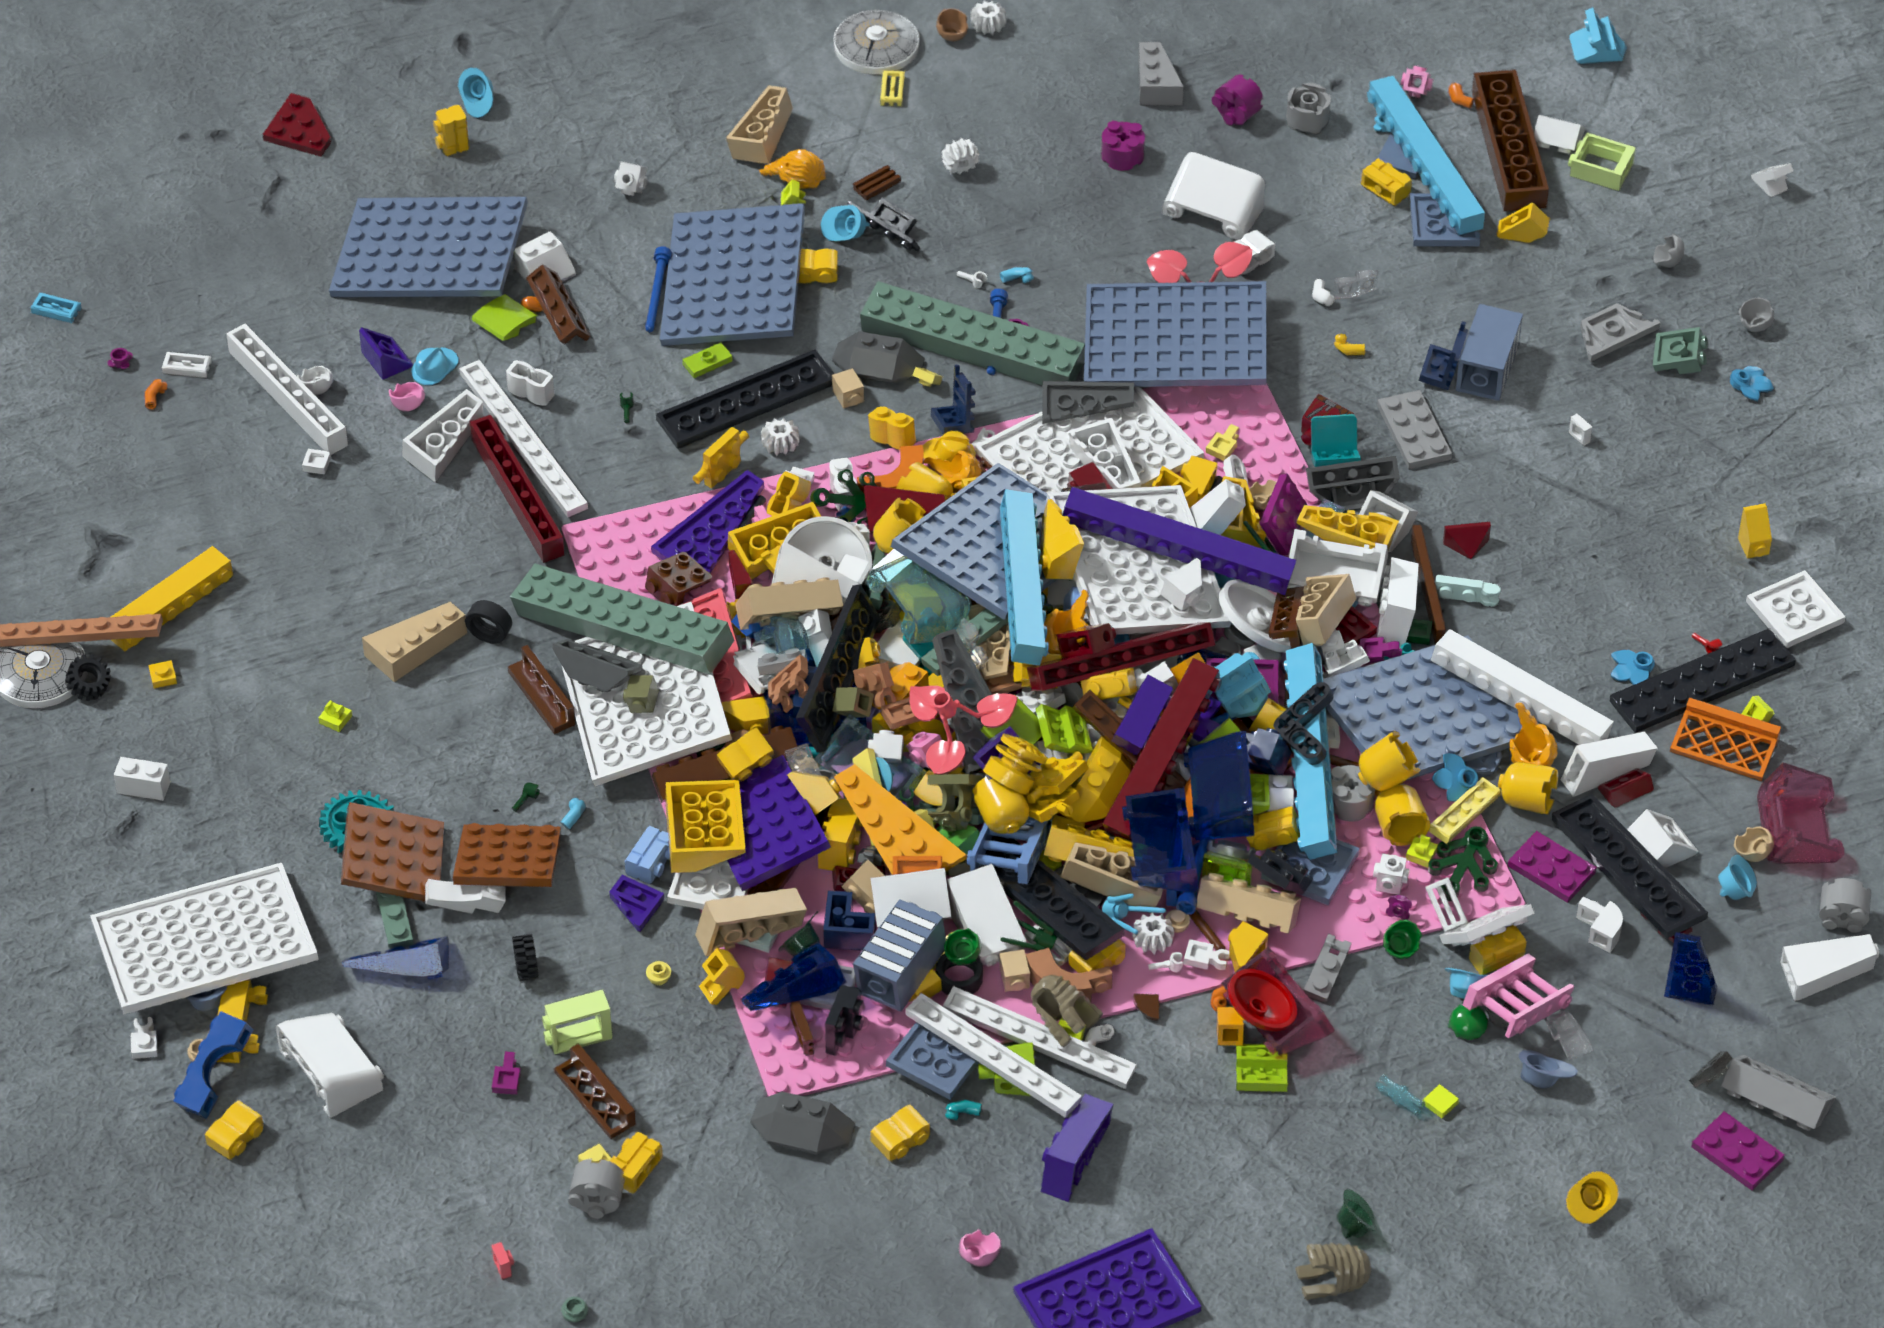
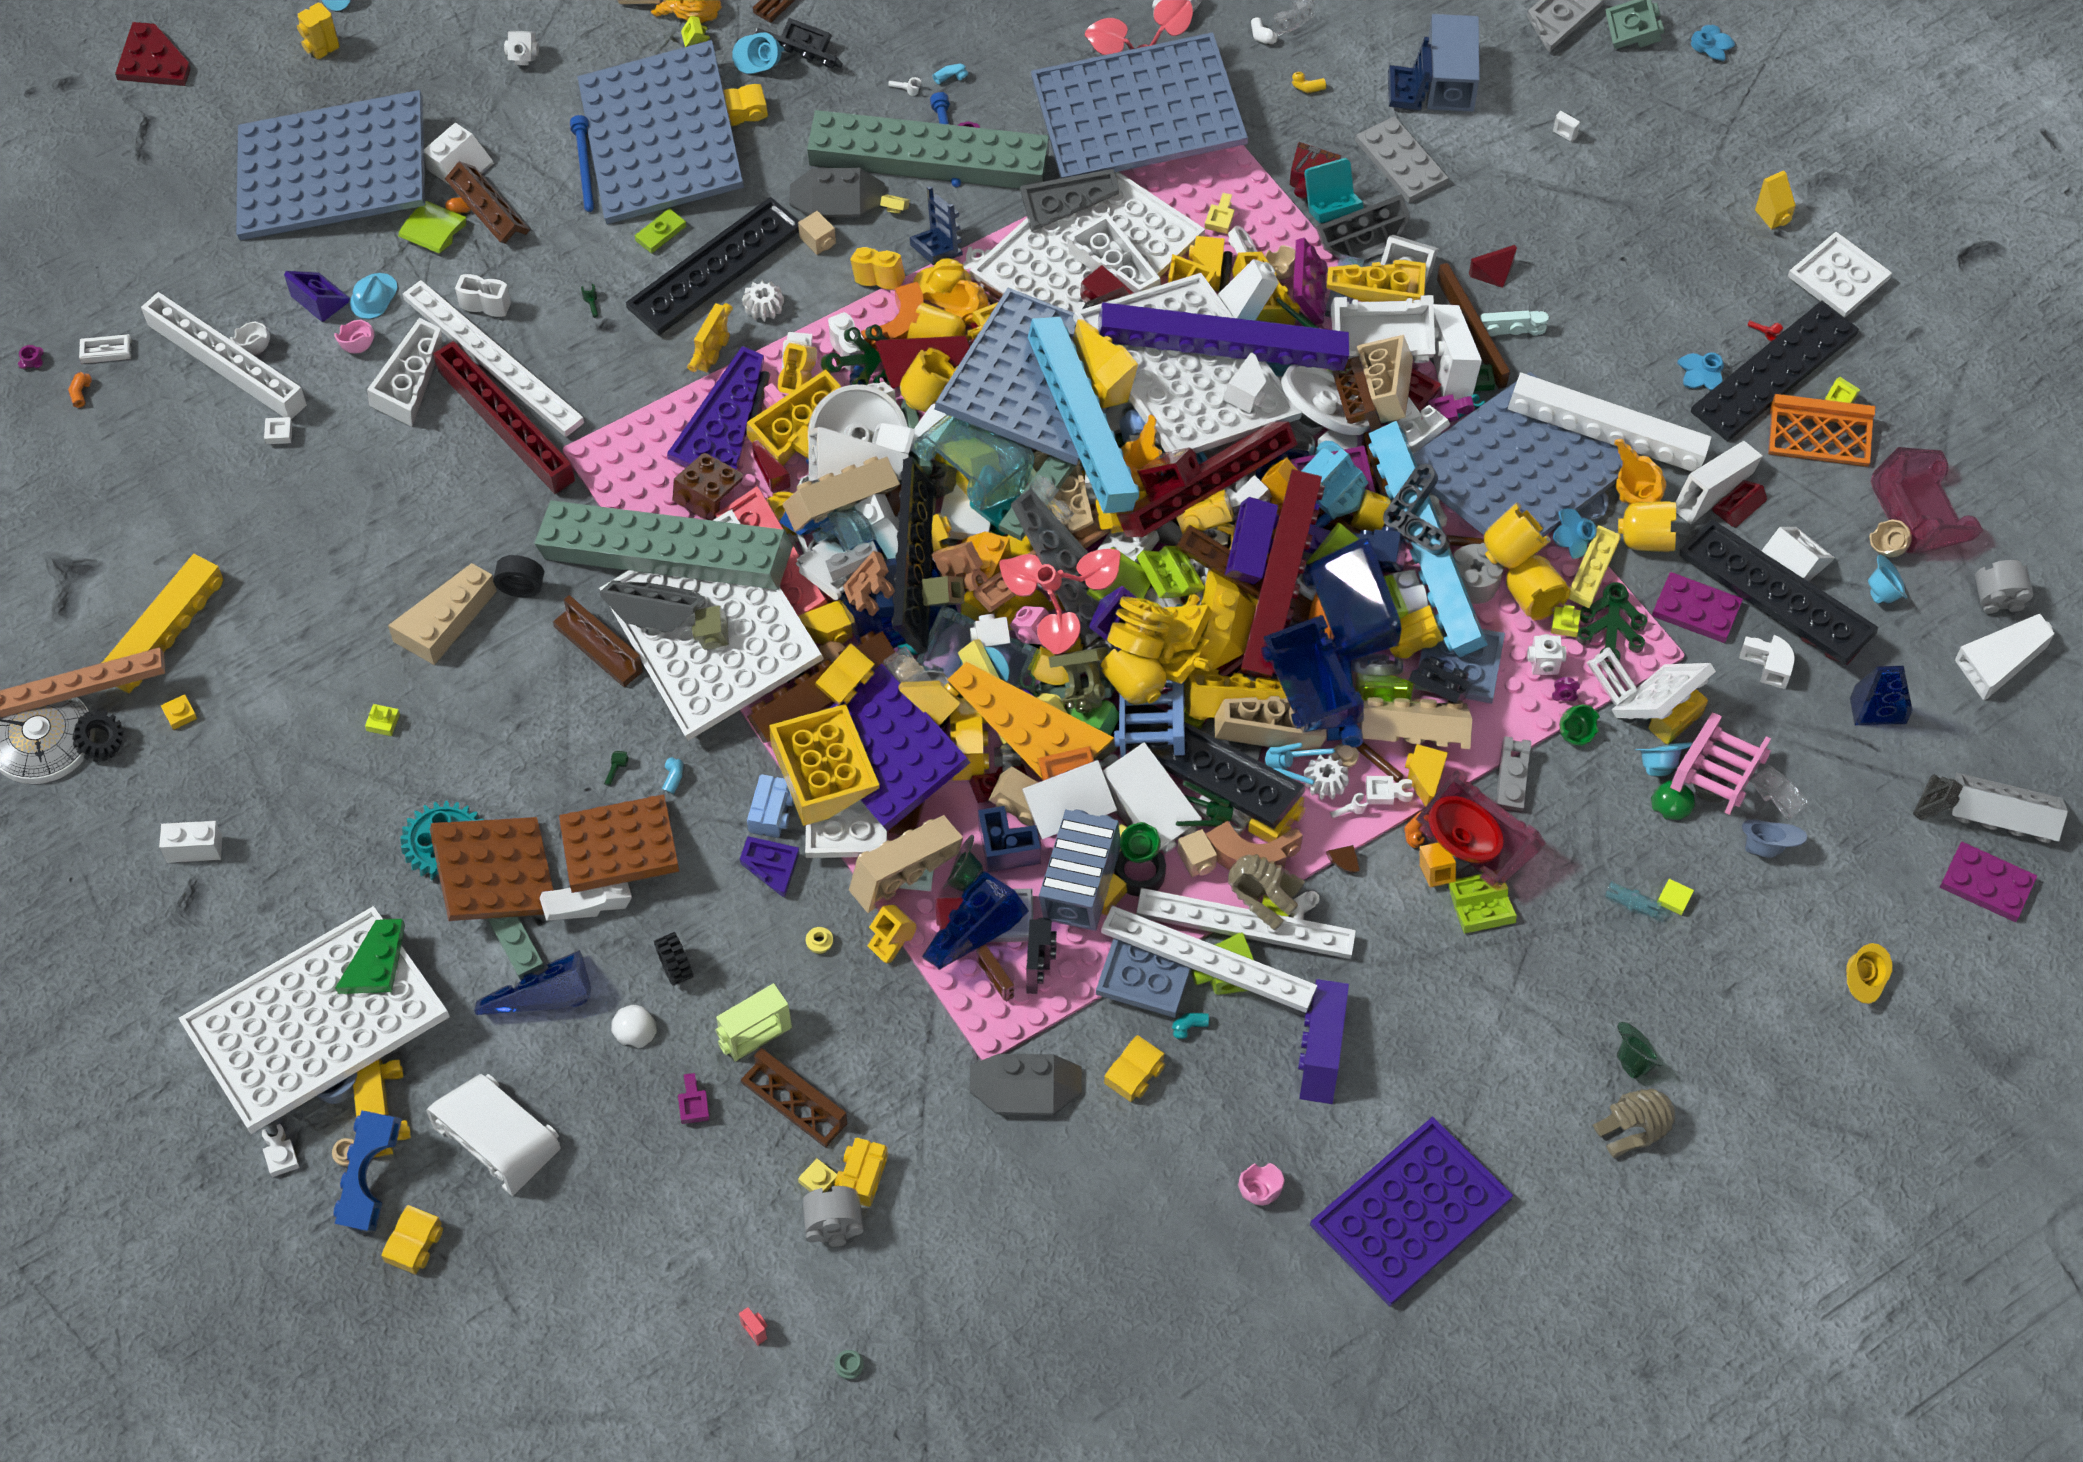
camera: 15 degrees left, 10 degrees up
(269, 902) = (375, 961): none -> green wing
(475, 1006) = (633, 1026): none -> white hair

